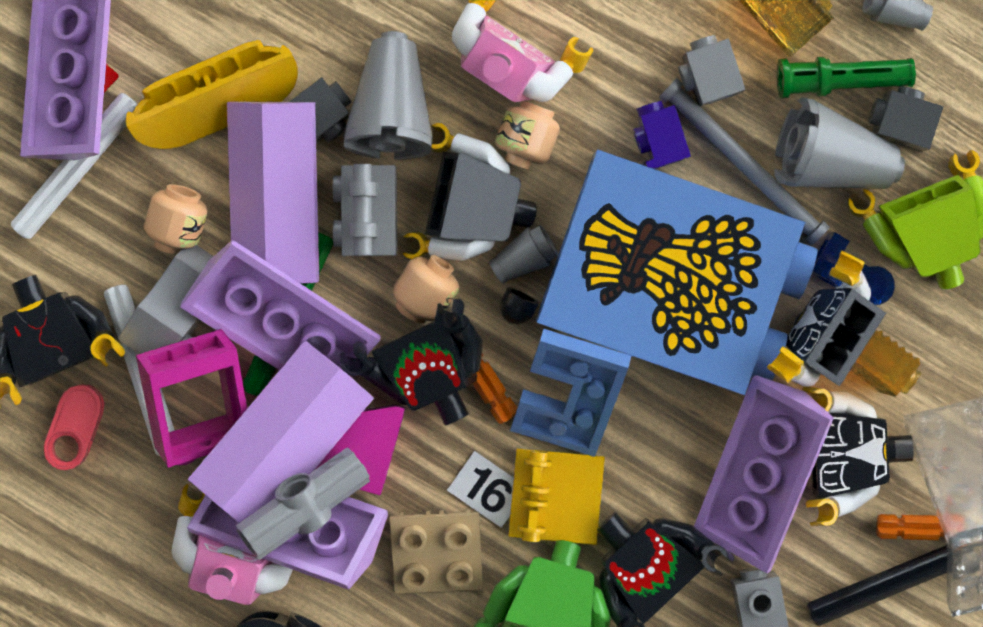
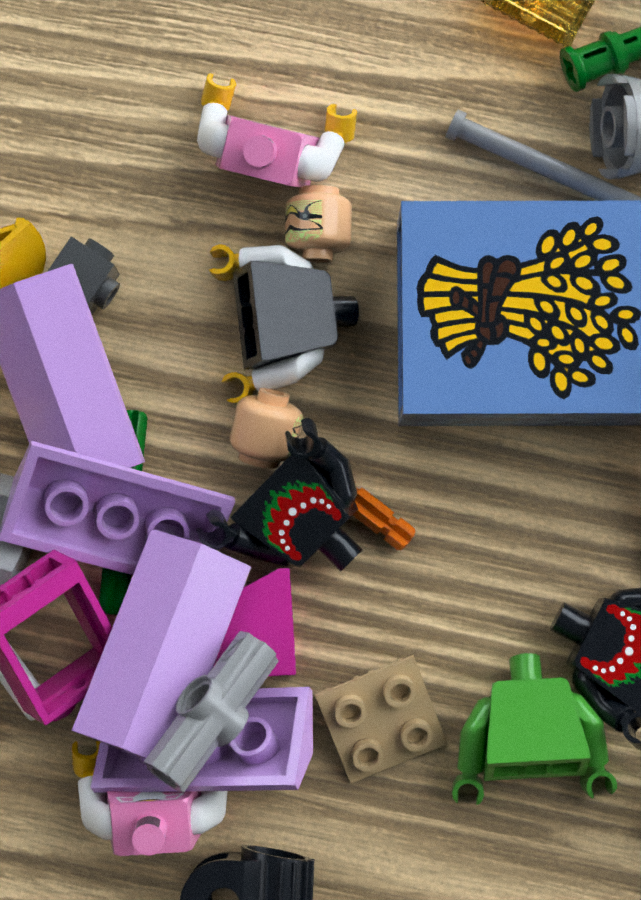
camera: 25 degrees left, 5 degrees down
(367, 210) = (172, 366): light grey brick -> none
(390, 103) = (157, 242): light grey cone -> none
(484, 488) = (412, 628): white sticker -> none
(517, 306) = (373, 415): black hinge -> none
(524, 255) = (361, 355): light grey cone -> none
(556, 496) = (491, 609): yellow hinge -> none
(595, 381) = (491, 455): medium blue plate -> none
(660, 135) = (463, 171): dark purple brick -> none
(711, 71) = (493, 87): light grey brick -> none

